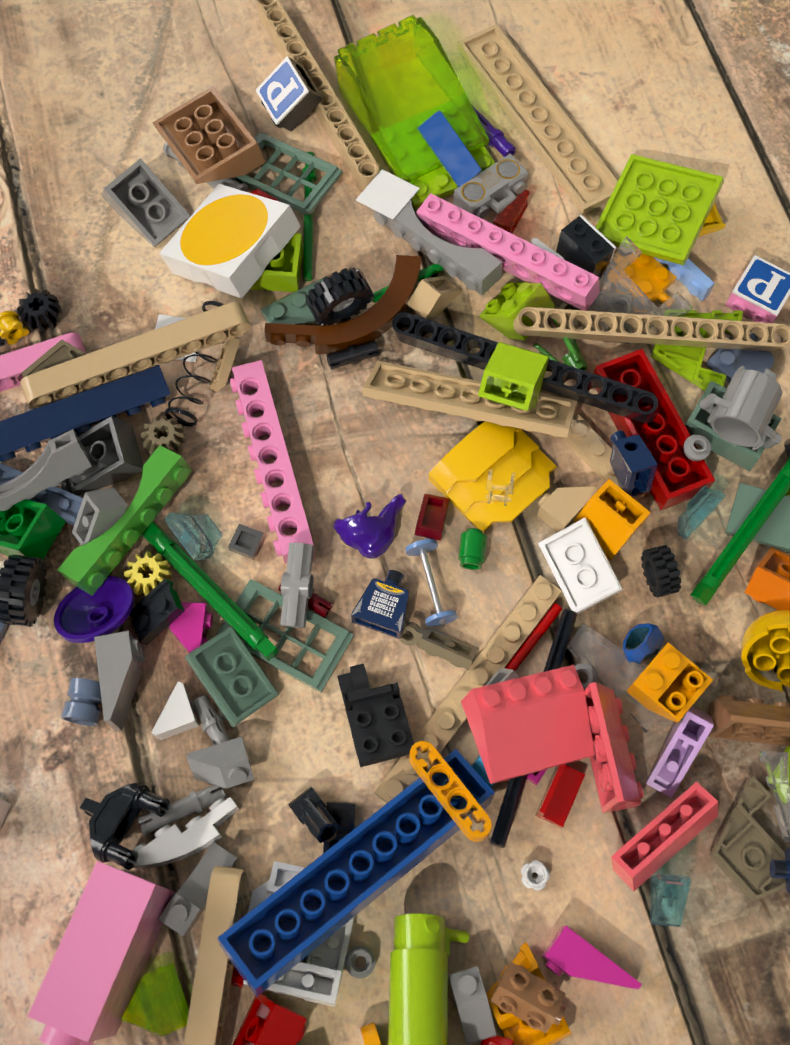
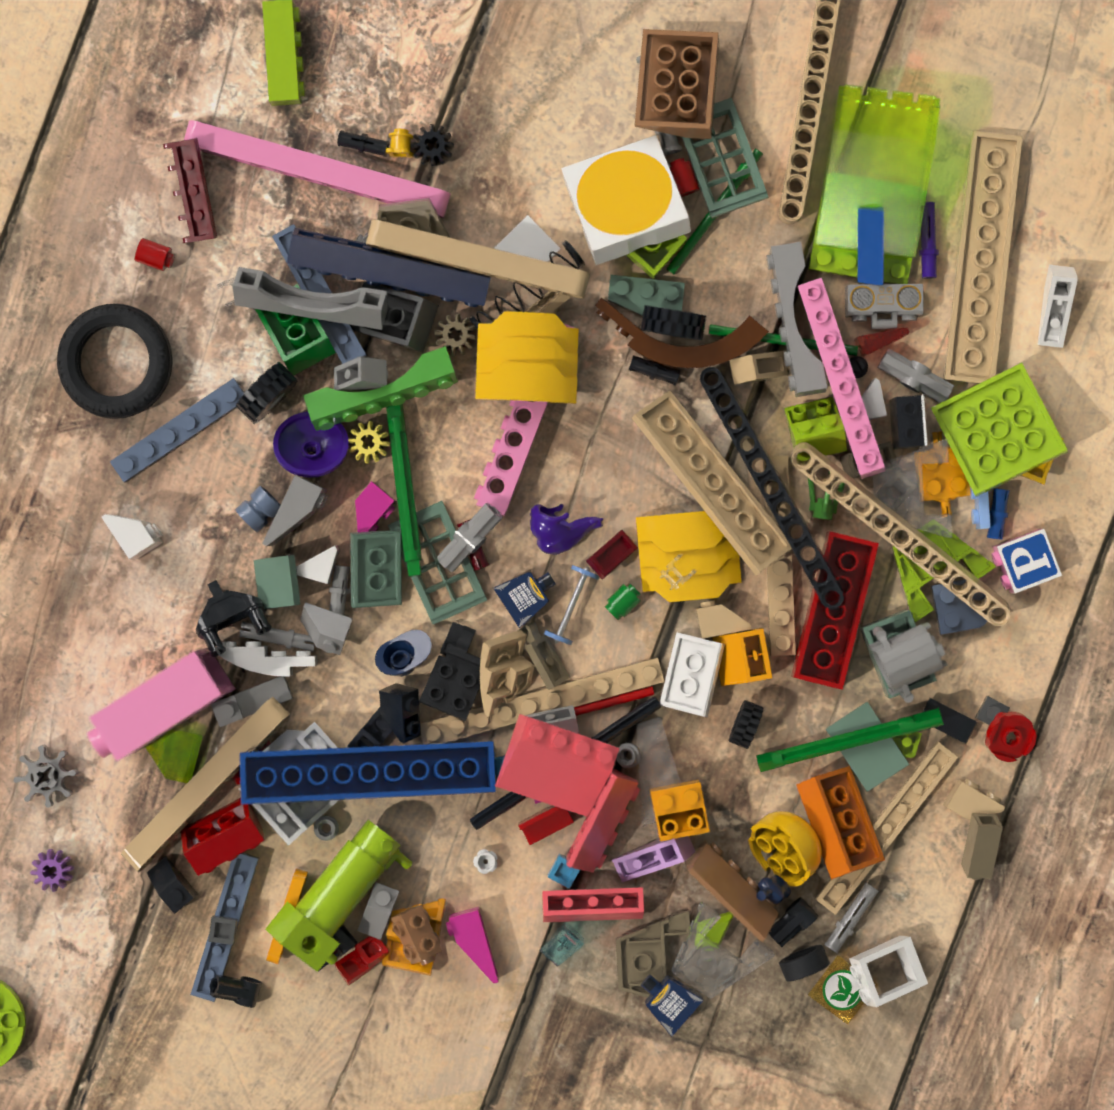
camera: 40 degrees right, 20 degrees up
(145, 203) = (585, 103): light grey slope -> none
(146, 754) = (277, 581): none -> sand green tile
(156, 612) = (354, 480): black plate -> none
(195, 532) = (426, 433): clear light blue slope -> none
(235, 404) = (527, 359): none -> yellow slope
(246, 541) = (459, 469): dark grey plate -> none
(289, 94) = (780, 84): piece -> none
(312, 735) = (403, 653): none -> dark blue piece
(313, 813) = (364, 703): black piece -> none
(349, 788) = (401, 711): none -> black slope
(387, 194) = (788, 248): white sticker -> none
(416, 683) = (503, 670): none -> tan slope
(451, 789) = (464, 768): light orange beam -> none
(514, 376) = (751, 499): lime slope -> none
(554, 222) = (915, 376): none -> light grey piece
(613, 826) = (561, 873): none -> dark azure plate
(619, 109) = (1057, 305): none -> white slope
(632, 463) = (787, 637): dark blue torso -> none
(642, 642) = (688, 765): blue rock -> none
(693, 453) = (840, 656): light grey plate -> none
(698, 511) = (815, 699): clear light blue slope -> none
(719, 289) = (998, 513): none -> blue pin

